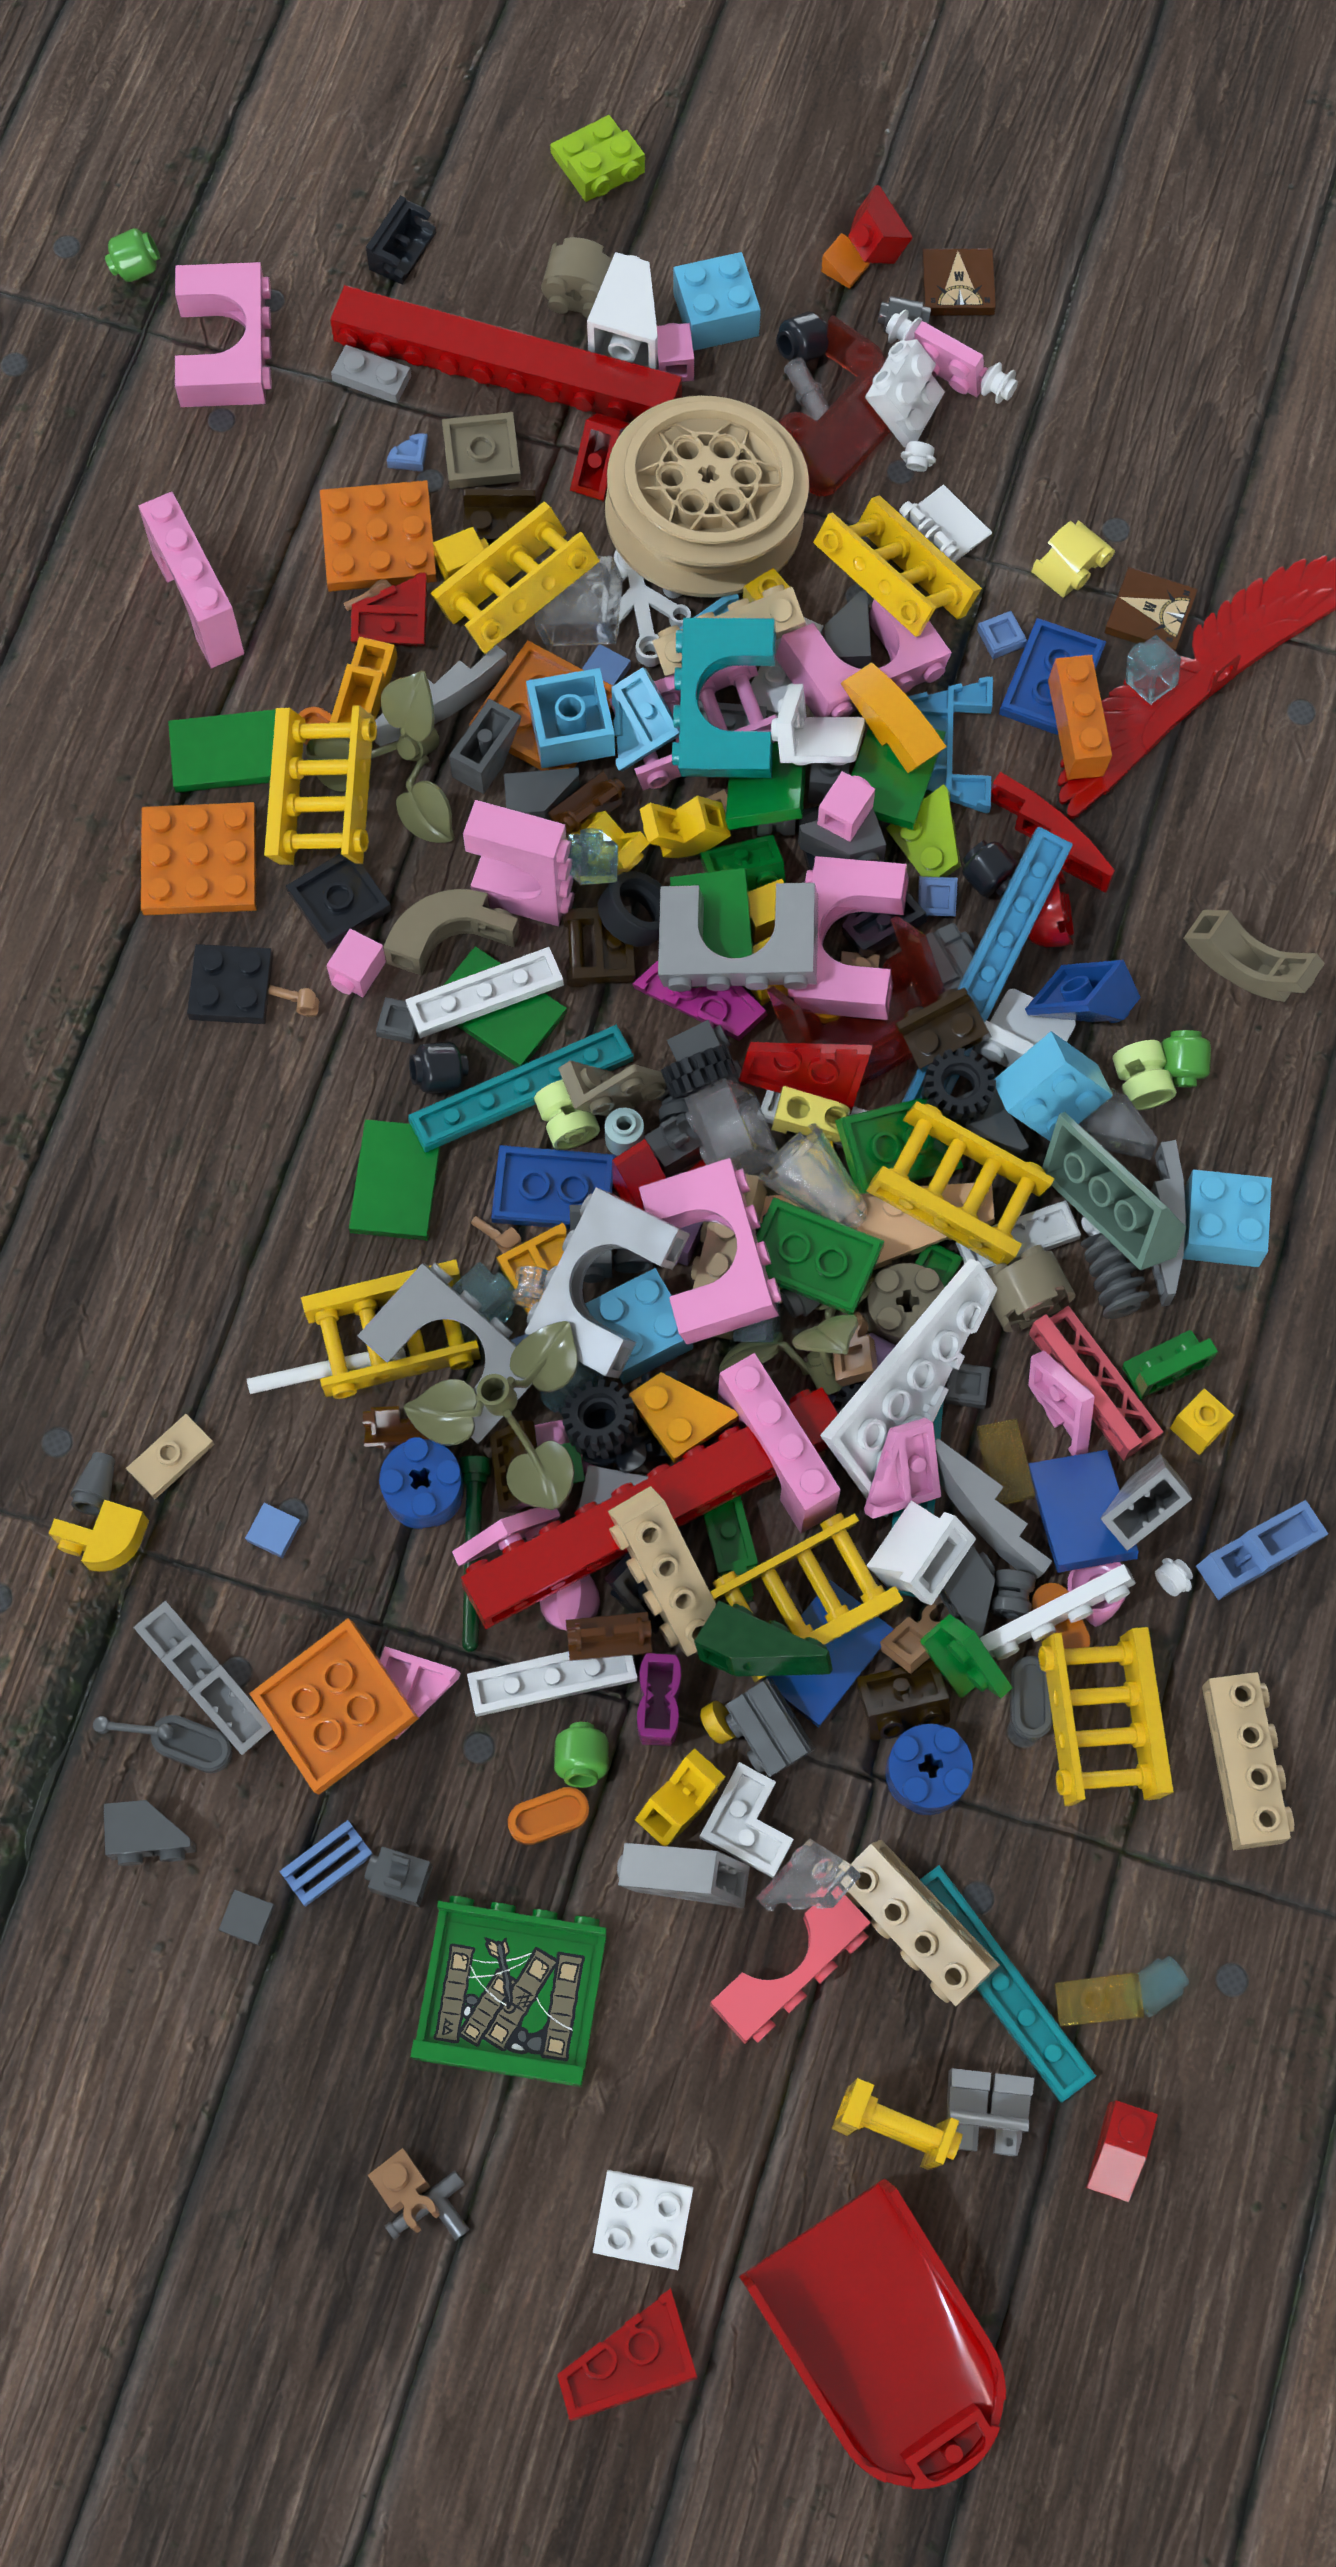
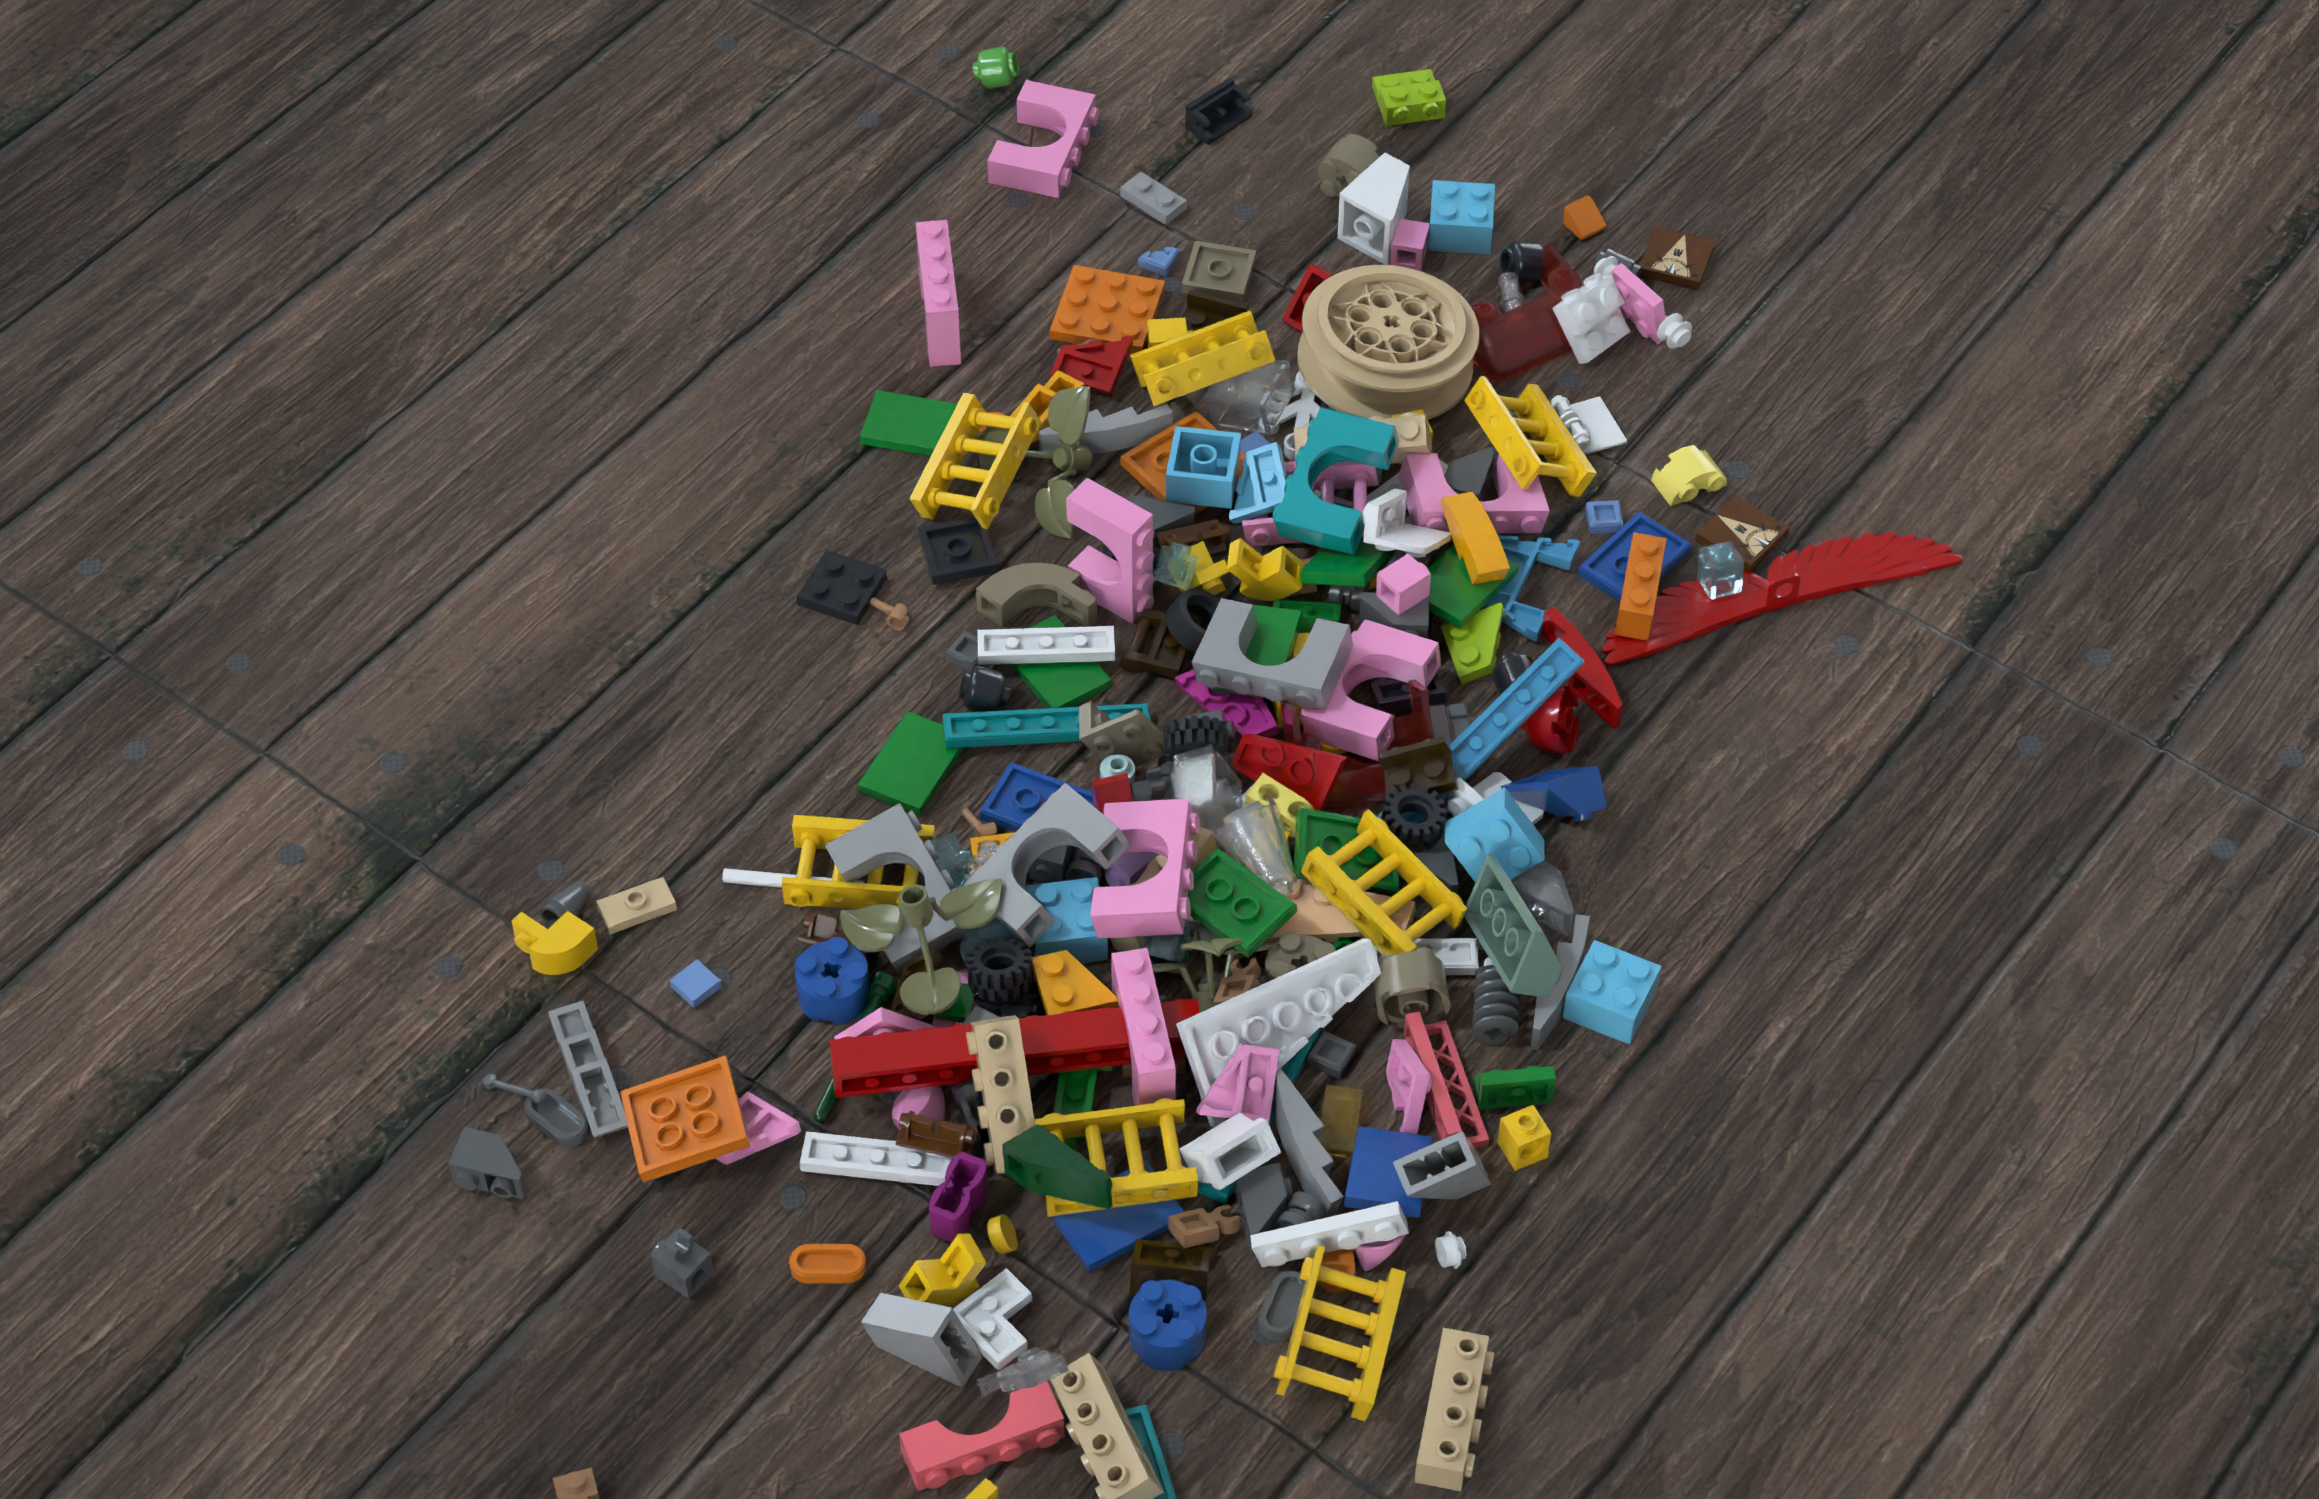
camera: 20 degrees right, 20 degrees down
(198, 858) = (857, 493): orange plate -> none
(246, 1917) = (542, 1257): dark grey tile -> none
(297, 1884) = (624, 1234): medium blue tile -> none
(355, 963) = (950, 598): bright pink brick -> none
(484, 746) = (1127, 468): dark grey slope -> none
(499, 356) = (1256, 205): red brick -> none
(510, 1992) = (736, 1381): panel -> none
(565, 1125) = (1071, 757): yellowish green wheel -> none
(581, 1755) = (875, 1221): bright green head -> none
(768, 1728) = (1043, 1249): dark grey brick -> none
(878, 229) = (1621, 202): red slope -> none
(918, 456) = (1586, 369): white plate -> none
(938, 895) = (1463, 686): medium blue tile -> none
(963, 1659) = (1232, 1246): green bracket -> none
(1143, 1071) = (1585, 864): yellowish green wheel -> none
(1187, 1057) = (1628, 863): bright green head -> none
(1247, 962) = (1711, 805): dark tan arch -> none
(1261, 1549) = (1536, 1253): medium blue slope -> none

